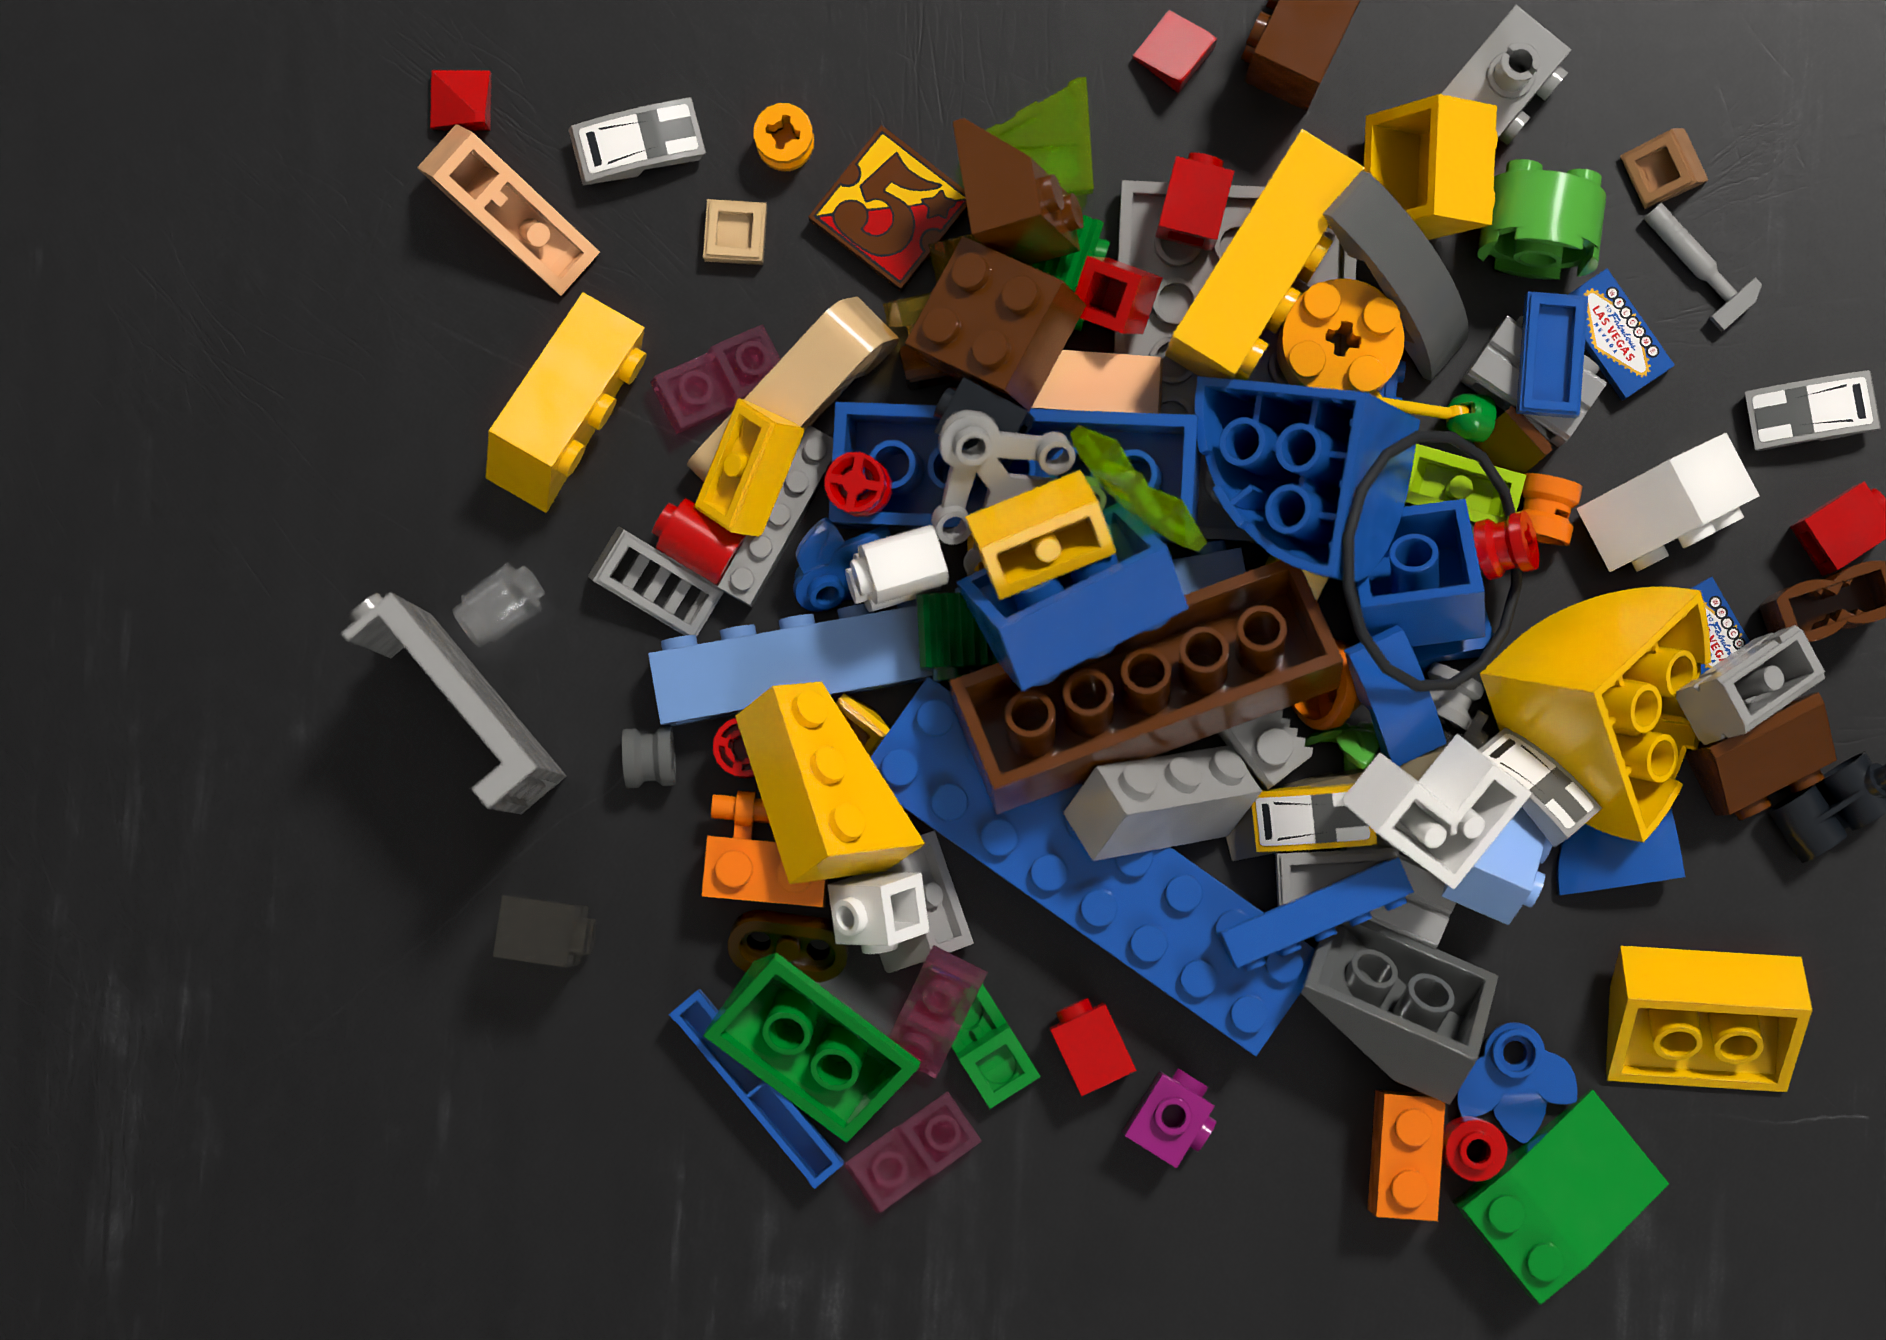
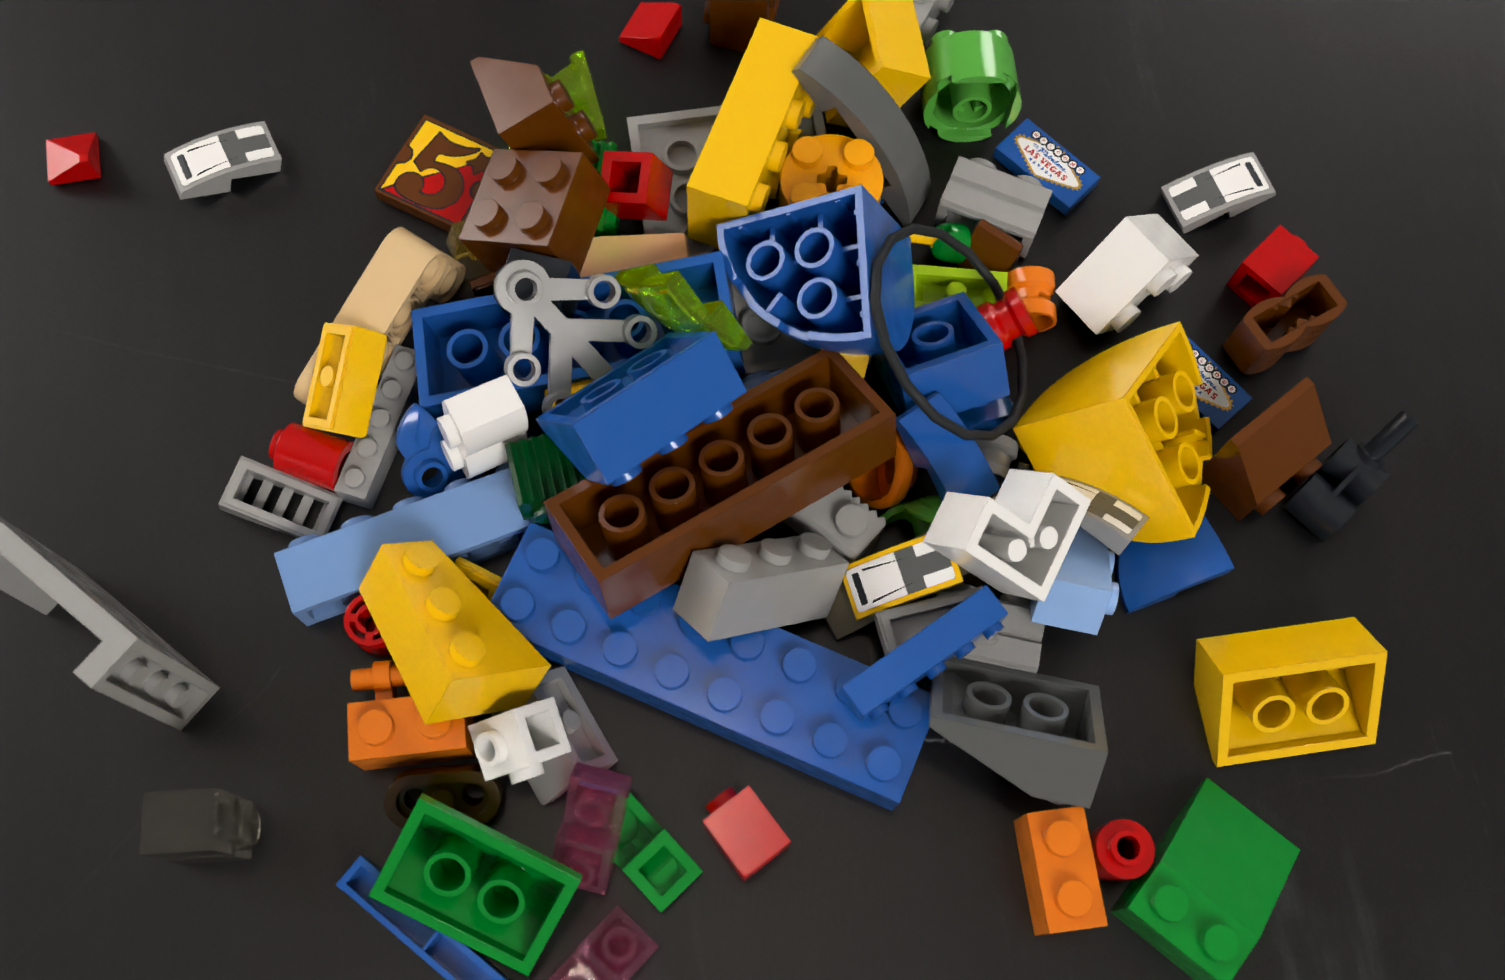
camera: 20 degrees left, 15 degrees down
(499, 604) = (137, 544): clear brick -> none
(508, 208) = (114, 223): light nougat slope -> none
(563, 401) = (173, 366): yellow wedge -> none
(648, 757) = (289, 650): dark grey wheel -> none
(716, 379) = (295, 338): clear pink slope -> none
(735, 232) = (315, 215): tan tile -> none
(782, 149) = (357, 142): light orange wheel -> none
(846, 481) = (428, 354): red wheel -> none
(1040, 534) = (601, 353): yellow brick -> none
(1172, 1117) = (834, 883): magenta brick -> none
(1195, 201) = (686, 113): red brick -> none
(1517, 1090) = (1145, 789): blue plate -> none
(1552, 355) = (1004, 173): blue tile -> none
(1664, 167) = (1048, 45): medium nougat slope -> none
(1703, 267) = (1100, 108): light grey piece -> none
(1750, 685) = (1244, 388): light grey brick -> none

